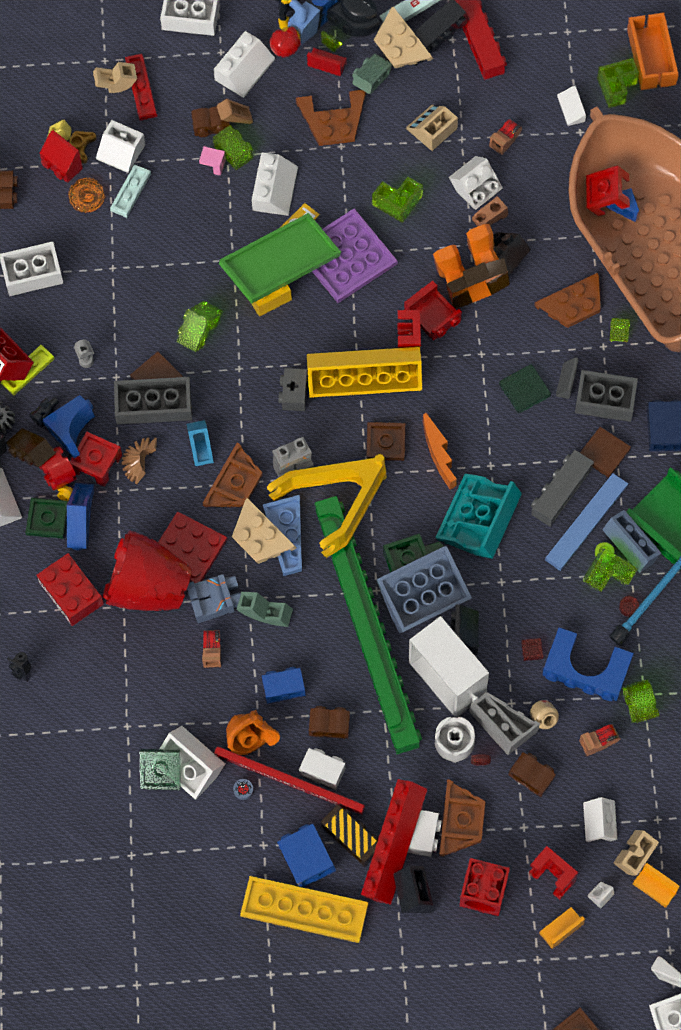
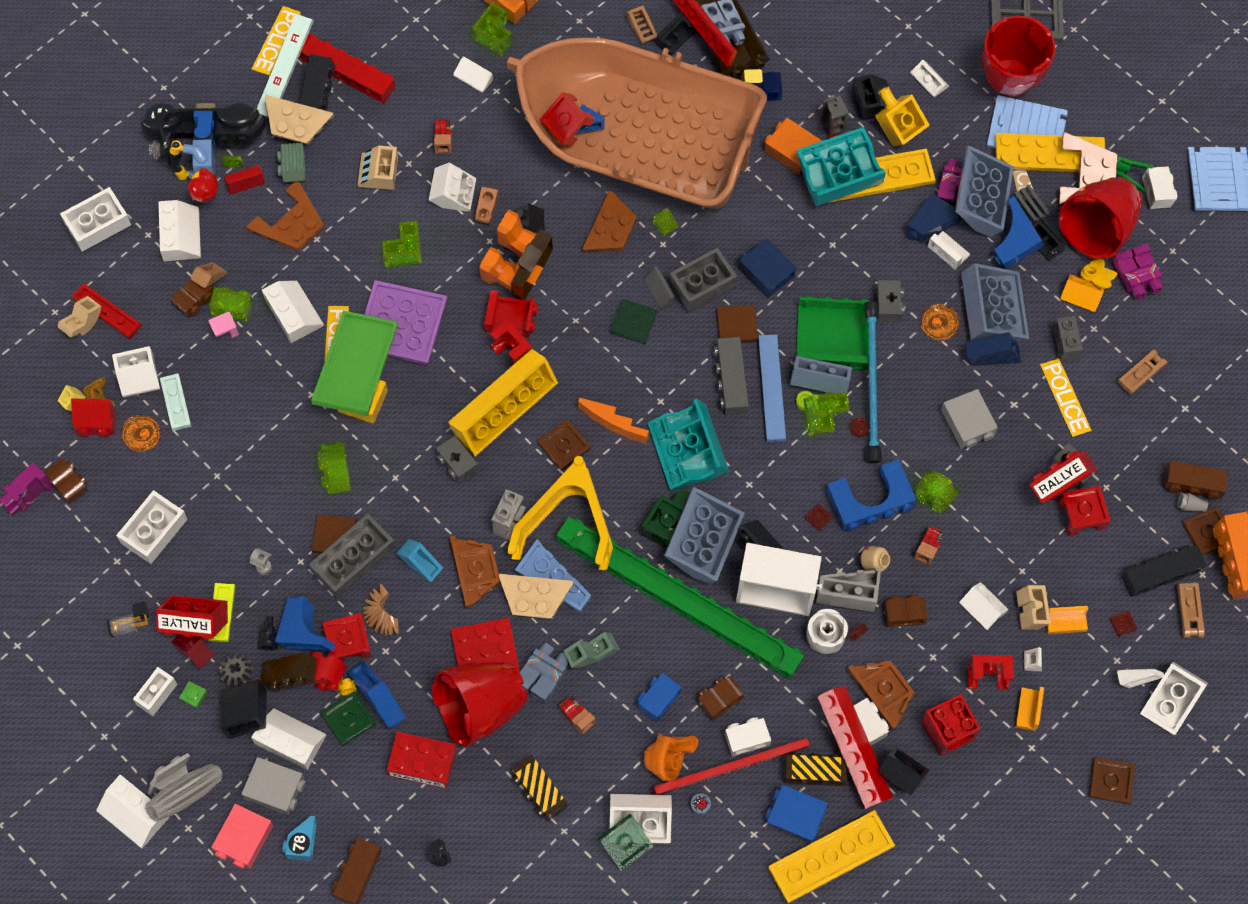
camera: 45 degrees left, 0 degrees up
(134, 679) = (538, 788): none -> brick

